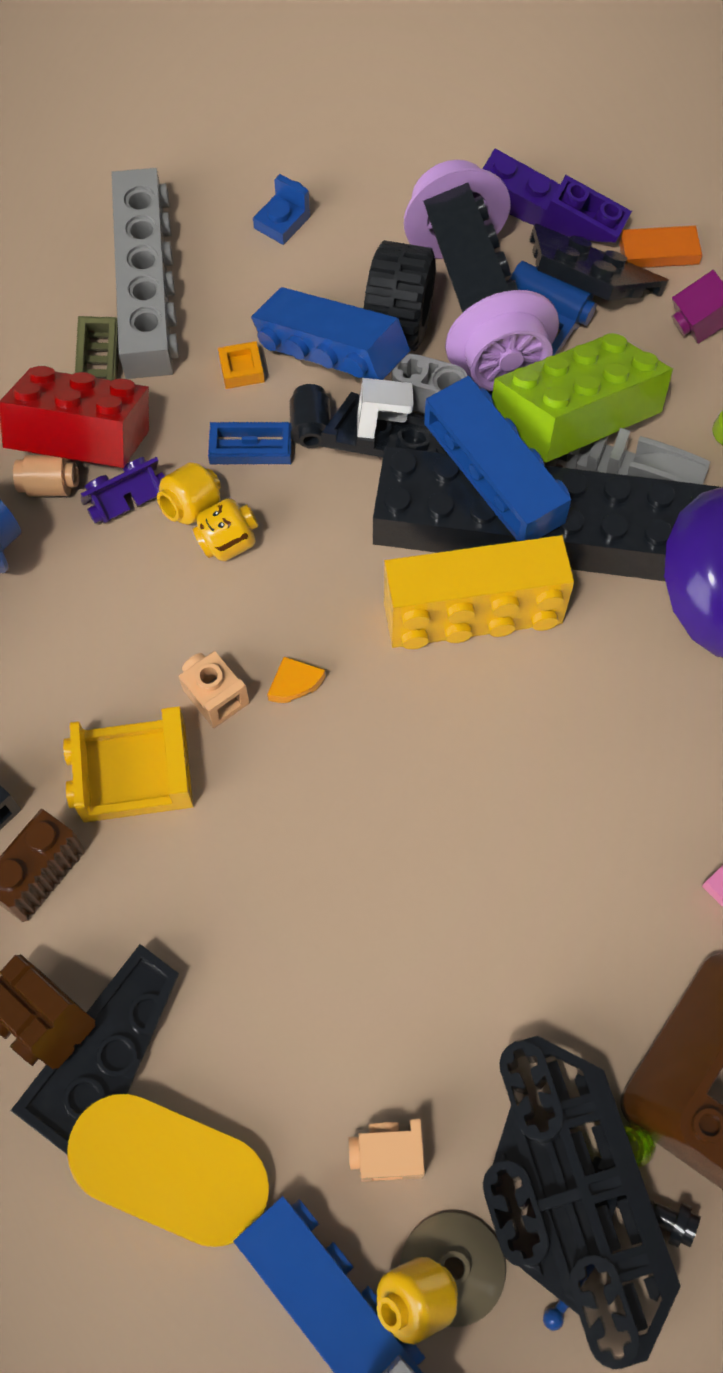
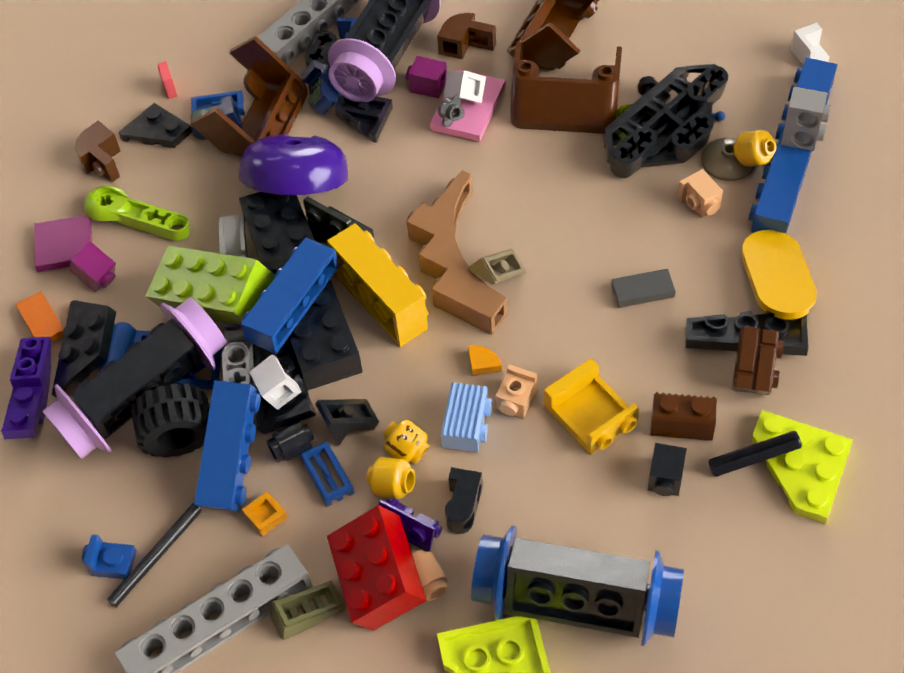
camera: 115 degrees left, 10 degrees down
(108, 558) = (463, 506): none -> black leg
(215, 611) = (465, 417): none -> light blue brick
(256, 243) = (154, 555): none -> black bar
(278, 956) = (643, 288): none -> dark grey tile
(300, 477) = (346, 416): none -> black slope
(420, 763) = (498, 267): none -> dark tan slope
(488, 708) = (455, 286): none -> medium nougat arch
(616, 598) = (328, 221): none -> pearl dark grey bracket

